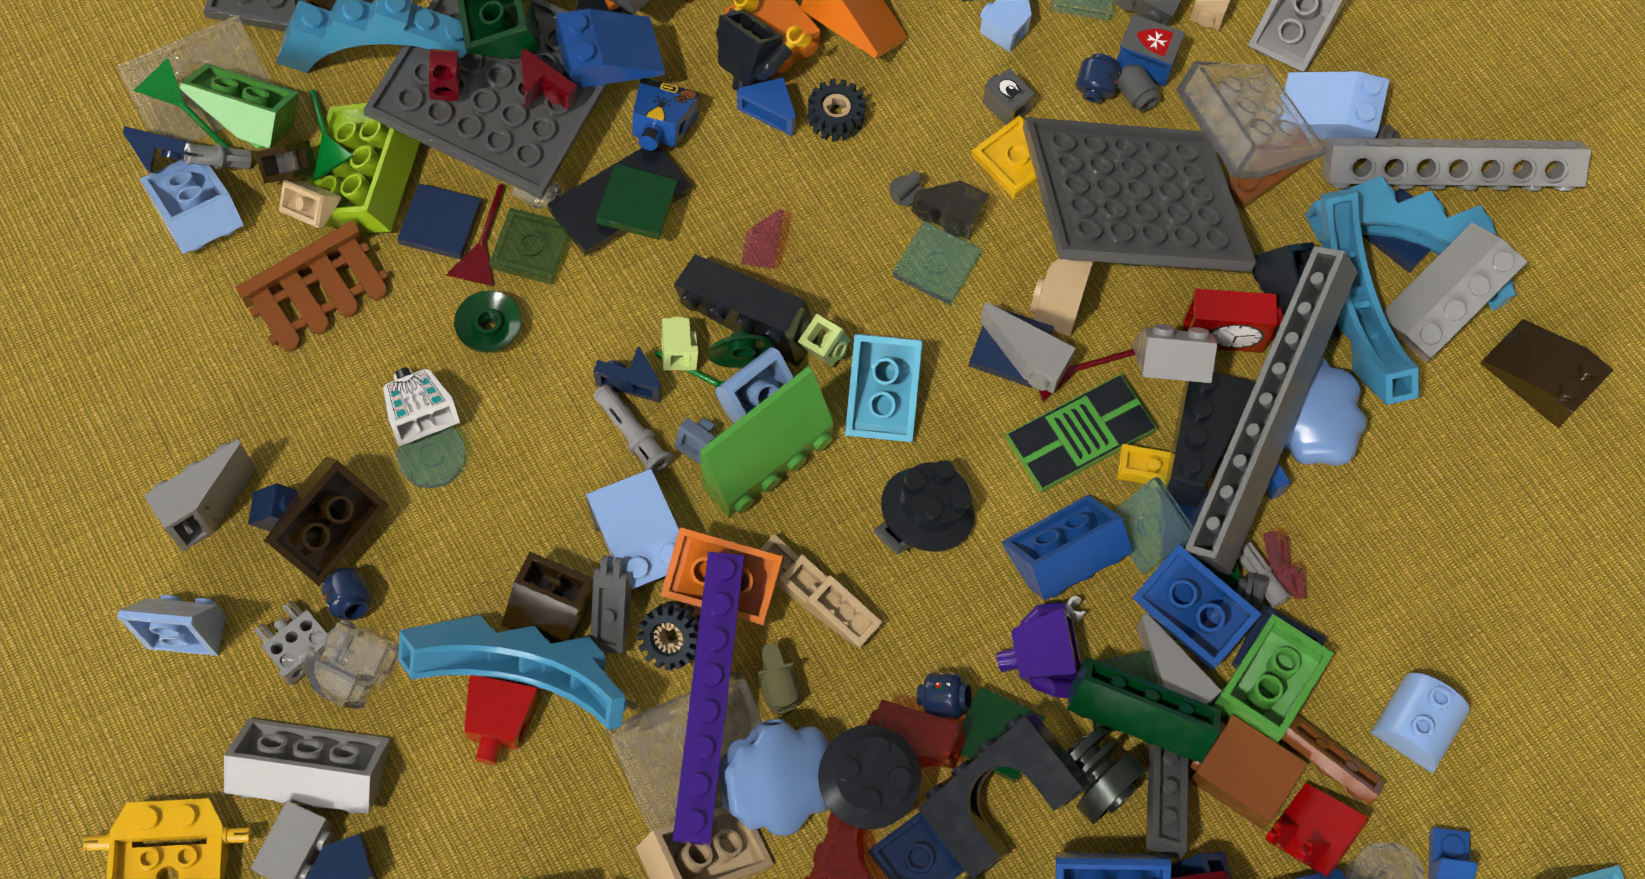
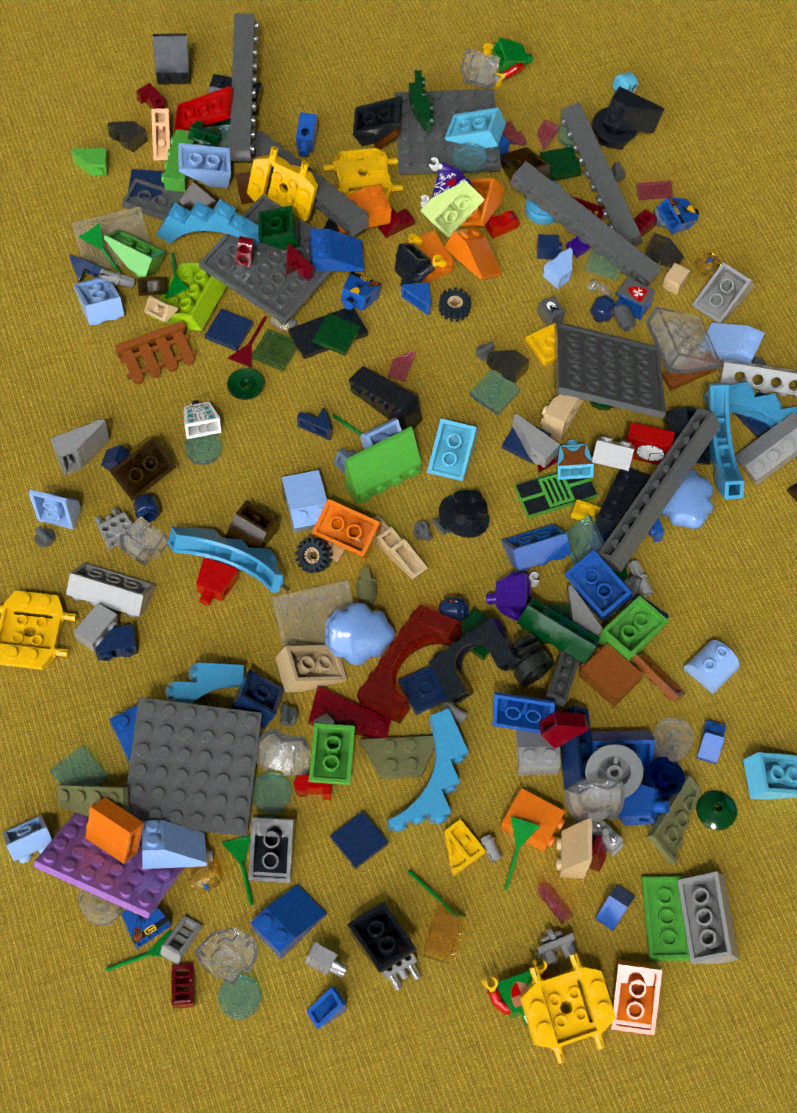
camera: 10 degrees right, 5 degrees down
(164, 683) = (43, 537): none -> dark grey plate
(611, 605) = (284, 534): dark grey hinge -> none
(640, 440) = (316, 457): light grey pin -> none
(678, 344) = (345, 411): yellowish green brick -> none
(708, 699) = (327, 586): dark purple plate -> none
(738, 349) = (376, 416): dark green dish -> none
(831, 344) = (428, 425): yellowish green brick -> none
(857, 550) = (422, 531): none -> dark grey plate
(869, 777) = (405, 639): black piece -> none
(1084, 35) = (600, 286): none -> clear arm
(1106, 374) = (574, 461): none -> medium azure torso
(1279, 559) = (651, 569): clear pink slope -> none
(1316, 829) = (640, 709): red plate -> none

